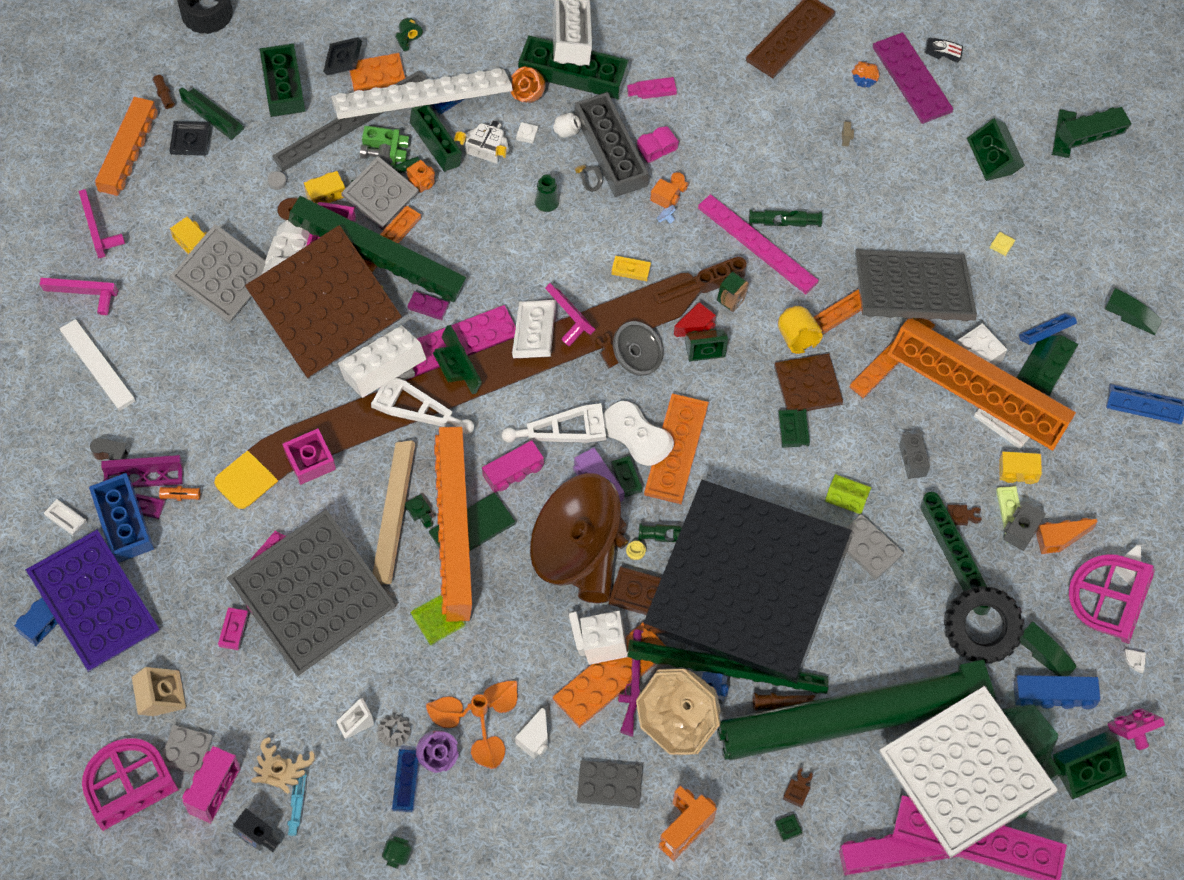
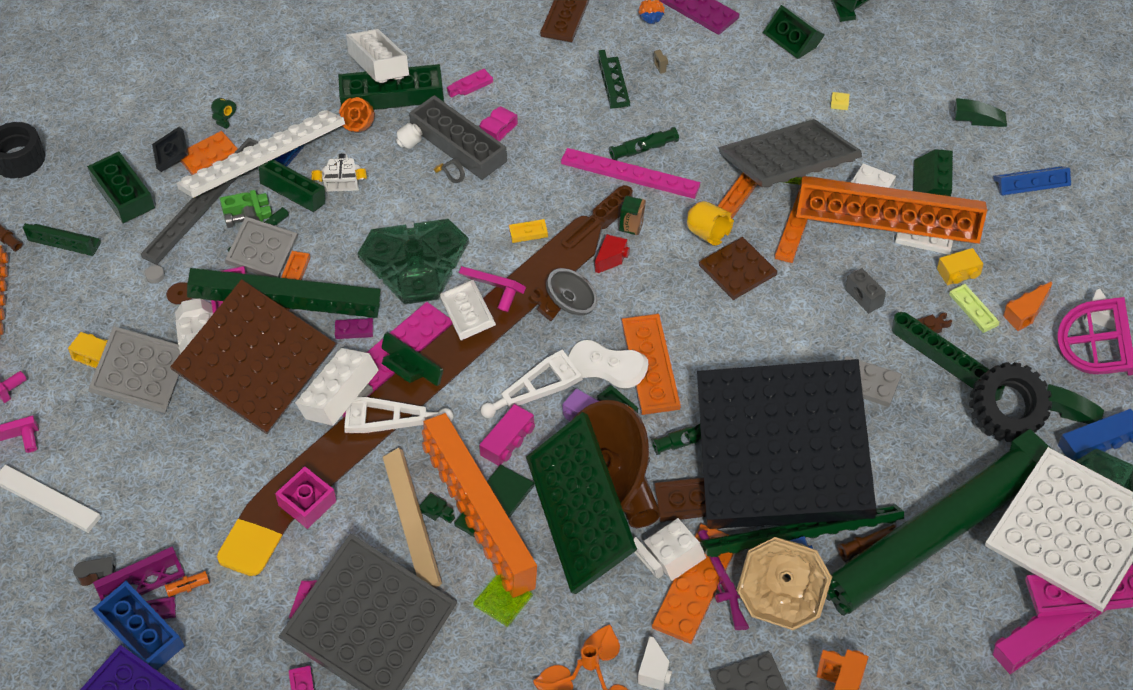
camera: 20 degrees left, 10 degrees down
(65, 517) = (76, 653): white tile -> none
(189, 138) = (51, 267): black plate -> none
(325, 188) = (208, 258): yellow brick -> none
(421, 176) = (294, 221): orange brick -> none
(514, 255) = (417, 264): none -> clear green plate
(527, 133) = (374, 155): white plate -> none
(541, 560) = (580, 503): none -> dark green plate
(546, 196) = (420, 196): dark green plant -> none
(635, 550) = (660, 464): light yellow plate -> none
(666, 214) = (537, 177): light blue plant -> none
(668, 193) = (528, 159): orange brick -> none
(706, 344) = (631, 267): dark green slope -> none
(787, 127) = (609, 82): none -> dark green fence
(788, 827) = (935, 652): dark green tile -> none
(793, 428) = (746, 308): dark green plate -> none
(797, 790) = (926, 615): reddish brown plate -> none
(847, 494) = (825, 344): lime bracket -> none
(1020, 536) = (993, 311): dark grey brick -> none
(1047, 328) = (917, 151): blue tile -> none

